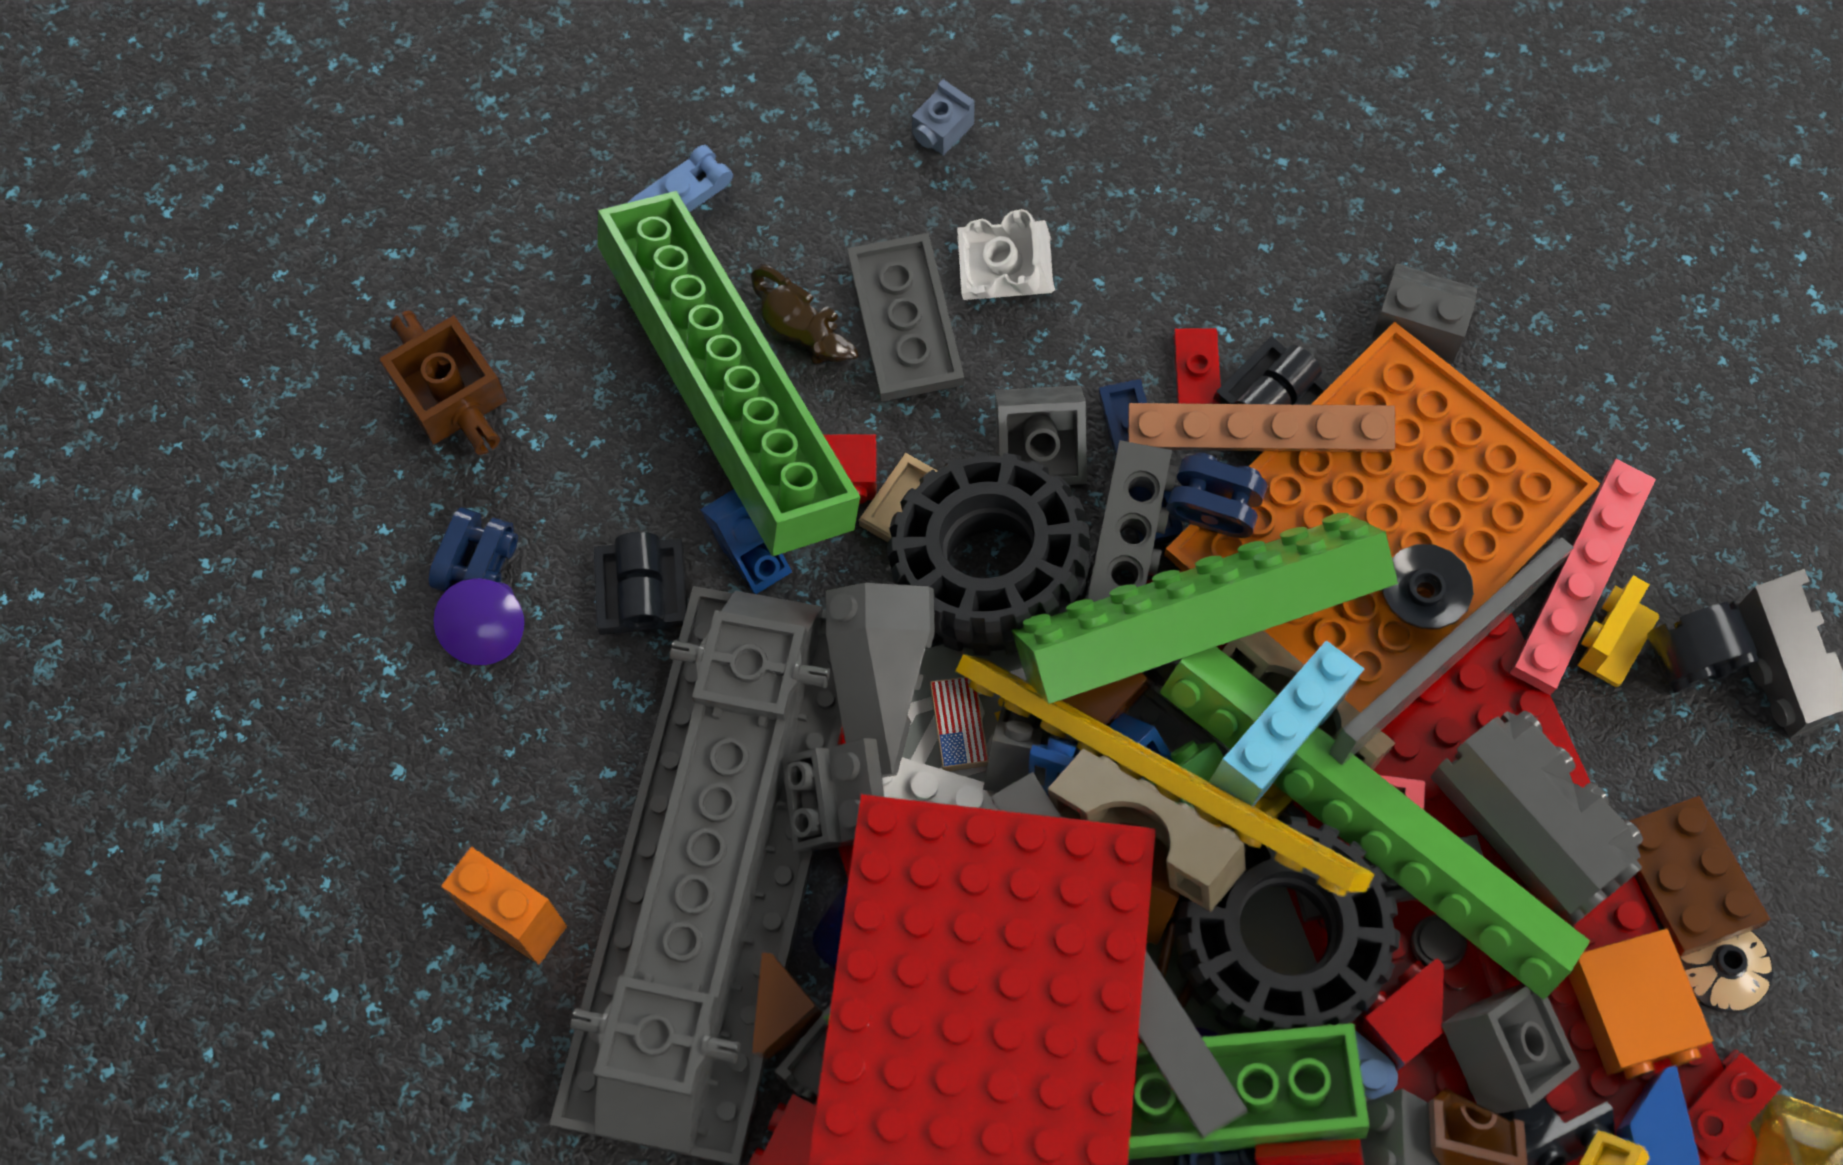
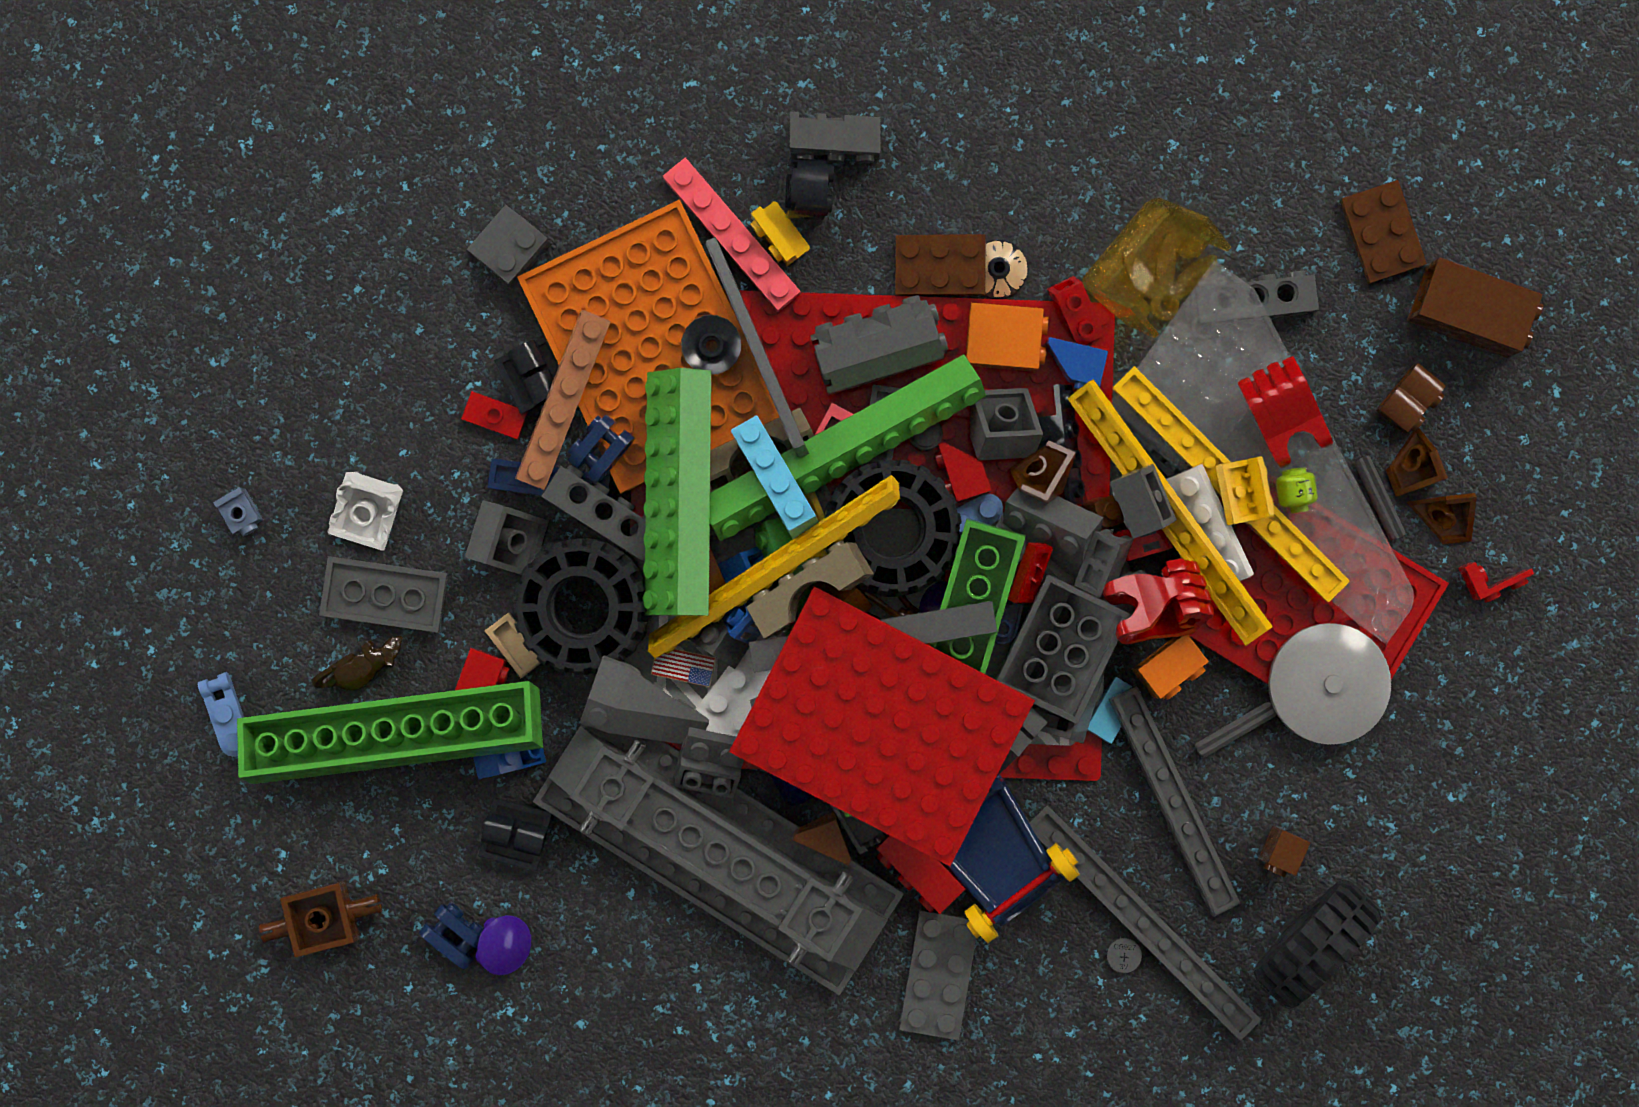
camera: 70 degrees left, 20 degrees up
(504, 905) = (702, 983): orange brick -> none

